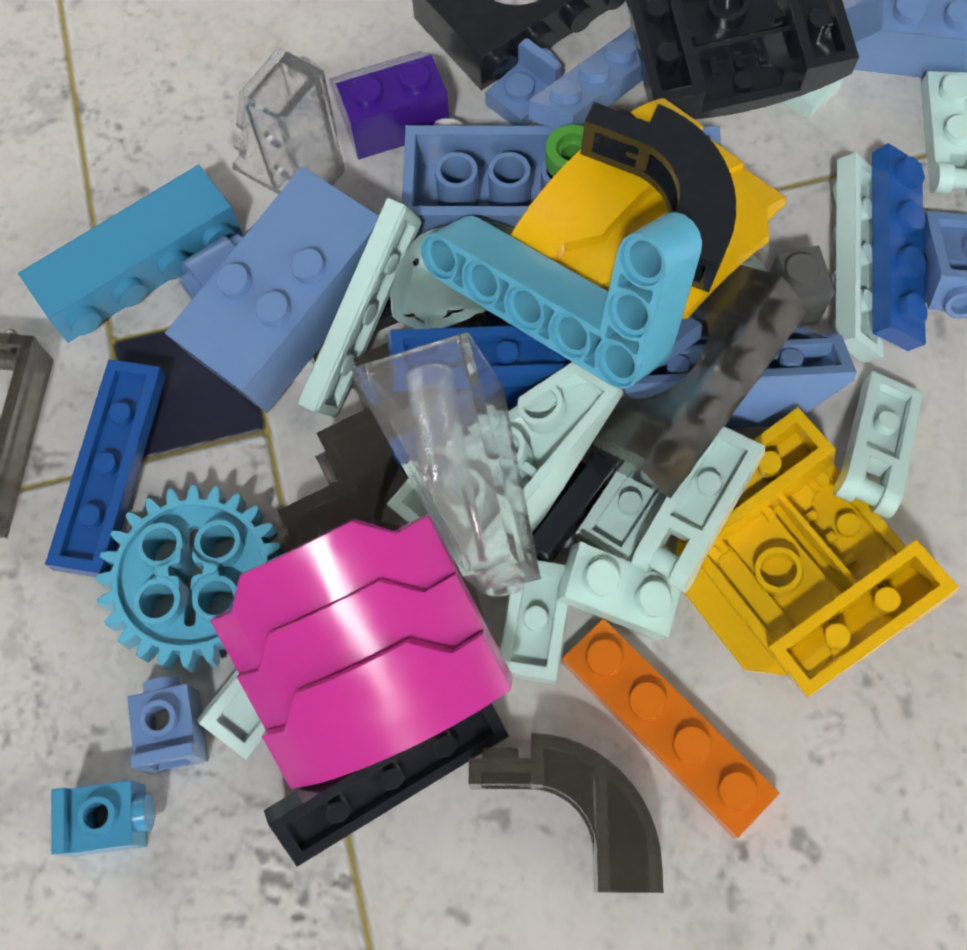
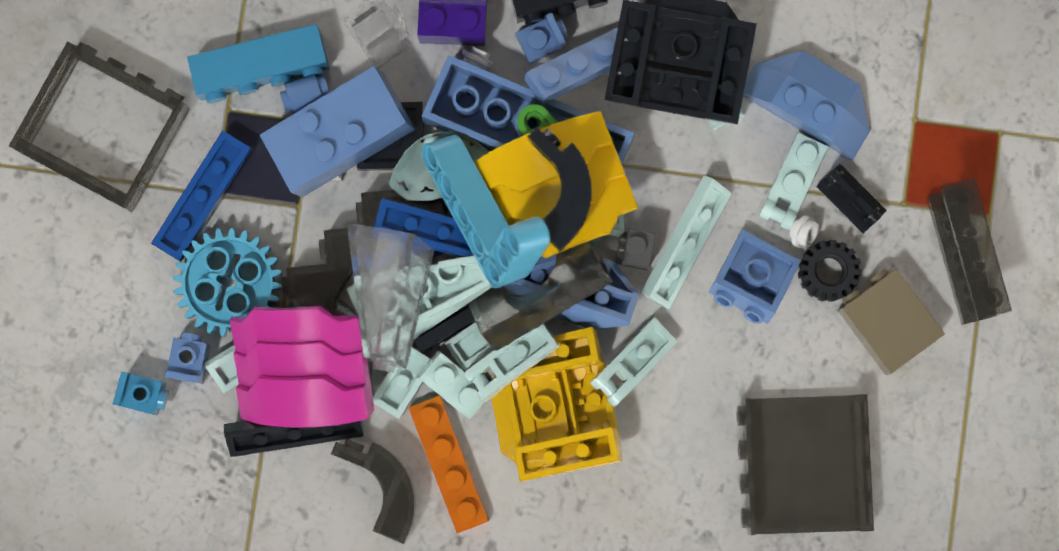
camera: 20 degrees right, 15 degrees up
(360, 309) = (376, 166): light aqua tile -> none
(898, 248) = (713, 244): blue plate -> none

